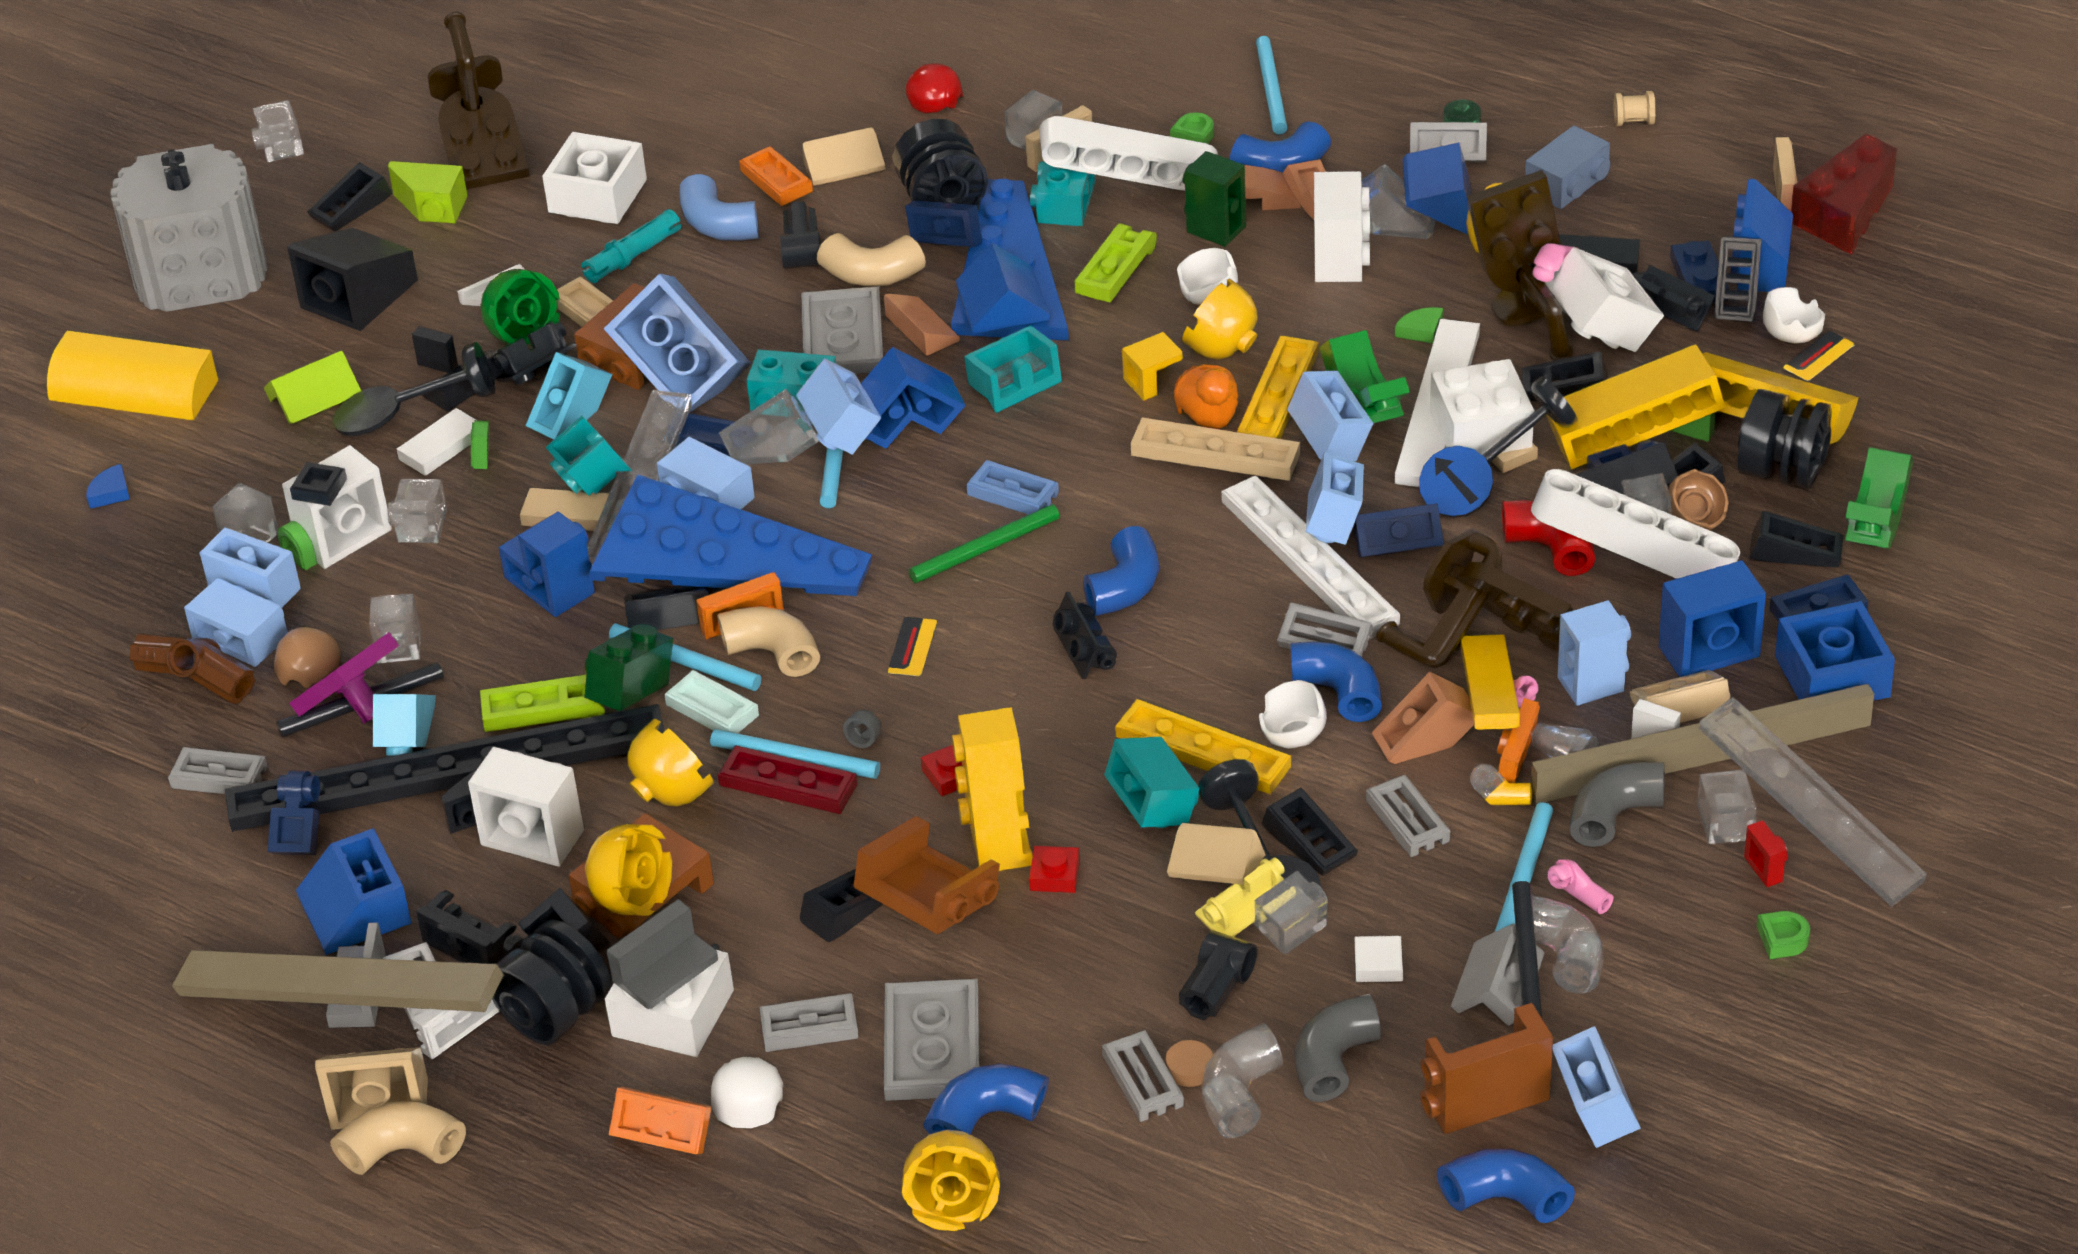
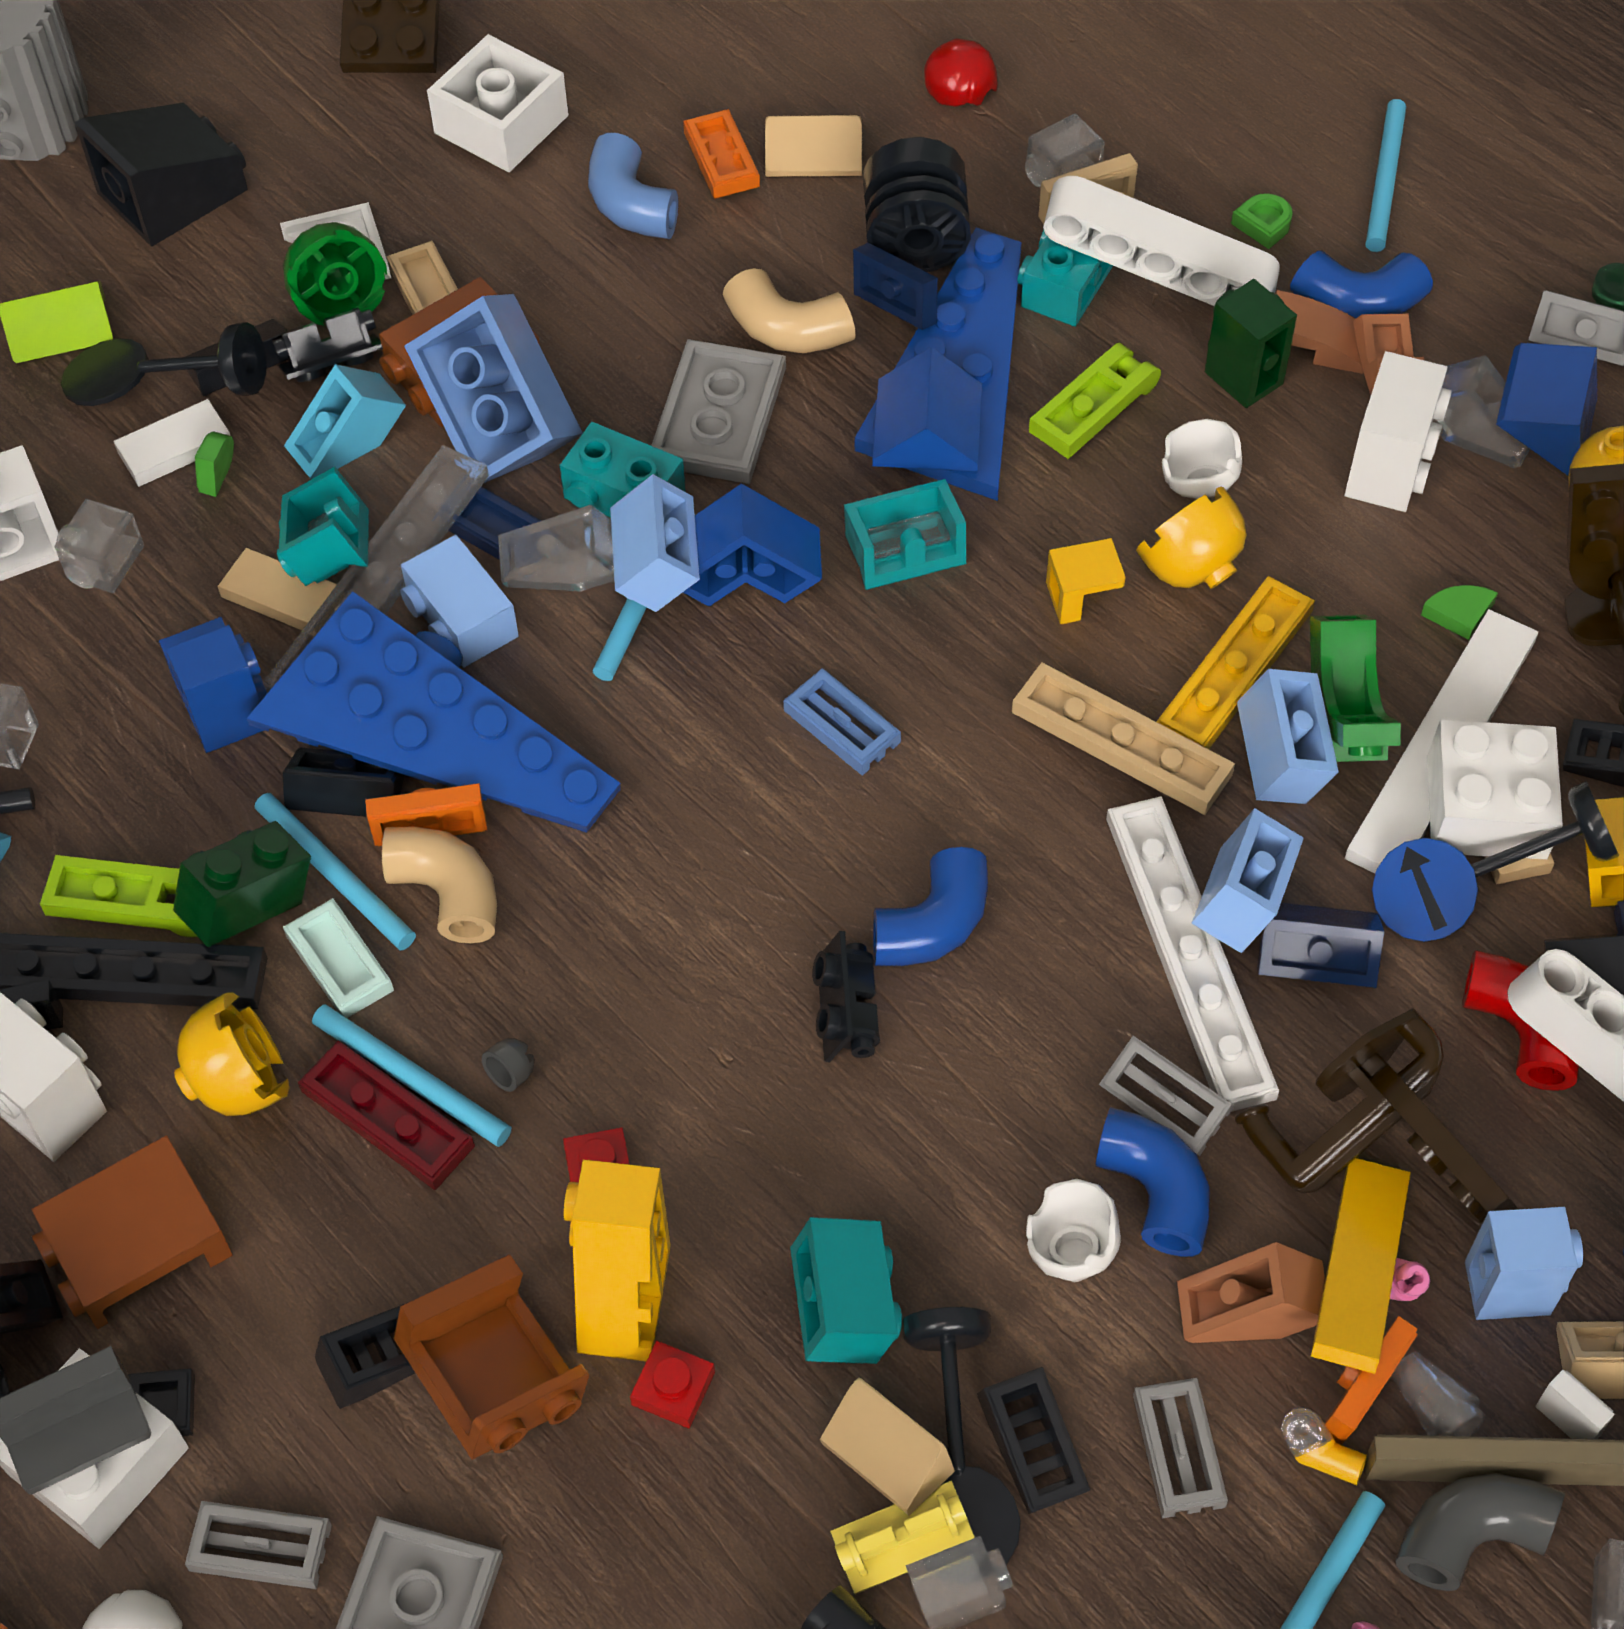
camera: 15 degrees right, 15 degrees up
(363, 185) = (227, 34): black slope -> none
(429, 190) = (307, 68): lime slope -> none
(434, 349) = (214, 301): black tile -> none
(621, 252) = (493, 218): teal pin -> none
(629, 869) = (87, 1252): yellow cylinder -> none
(800, 236) = (716, 253): black piece -> none
(912, 646) = (626, 938): sticker -> none
(919, 323) = (818, 424): nougat slope -> none
(984, 543) = (774, 800): green bar -> none
(1202, 744) = (943, 1233): yellow tile -> none
(1207, 395) = (1139, 648): orange piece -> none

